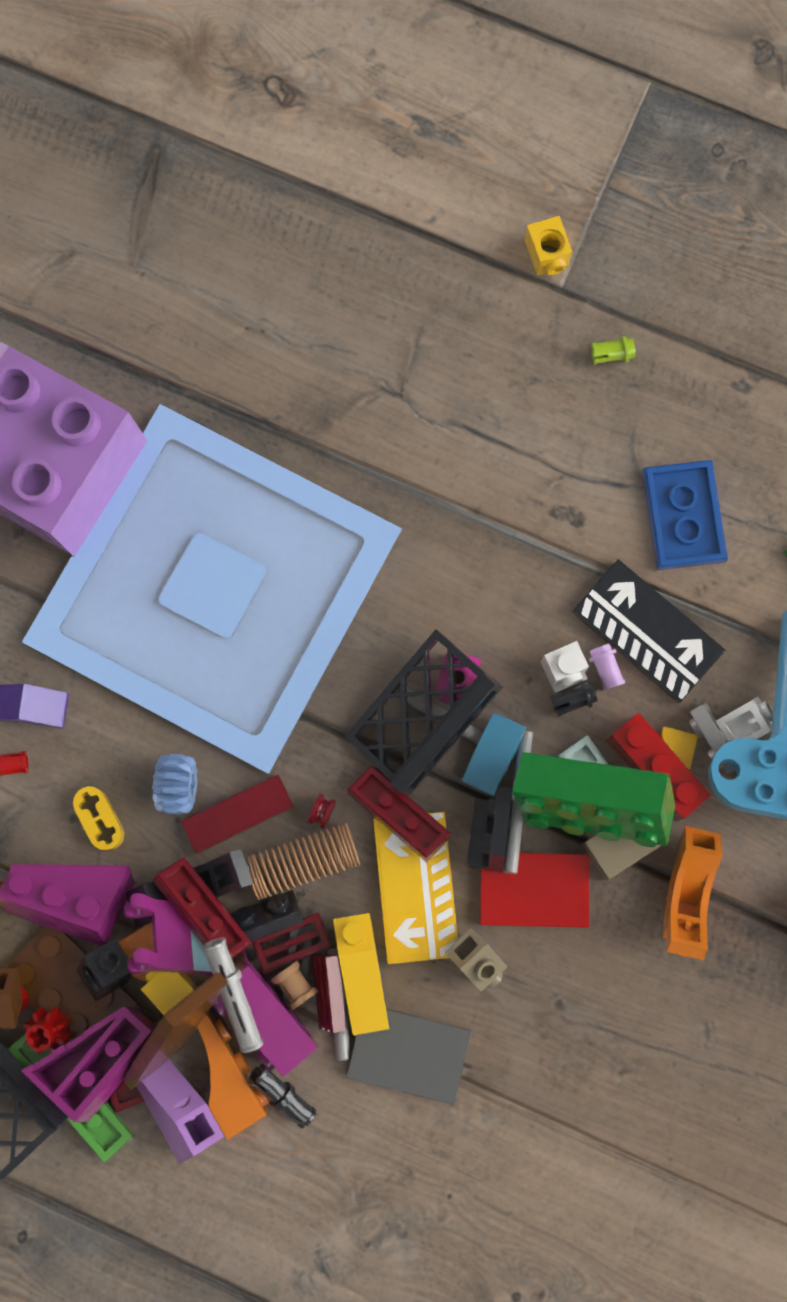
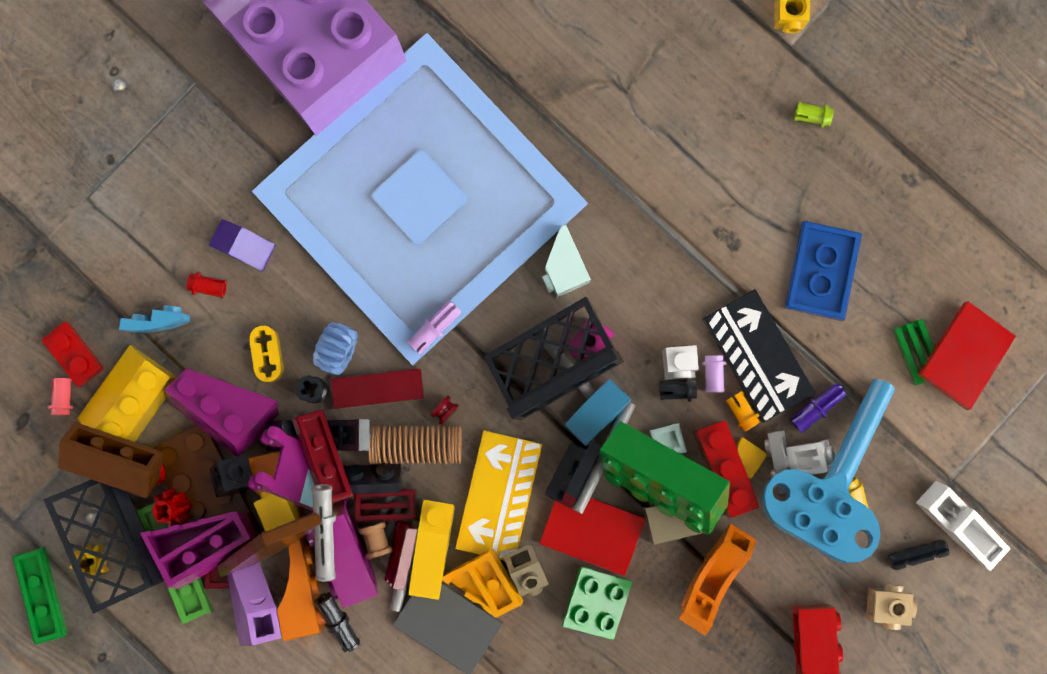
camera: 20 degrees right, 5 degrees up
(152, 840) = (320, 392): none -> black bush
(278, 722) = (434, 327): none -> lavender axle
(399, 813) = (505, 433): dark red tile -> none
(400, 605) = (564, 266): none -> light aqua slope
(436, 991) = (486, 583): none -> light orange wing
(568, 969) = (596, 603): none -> hinge
(655, 700) = (744, 413): none -> light orange pin
(734, 665) = (817, 408): none -> dark purple axle

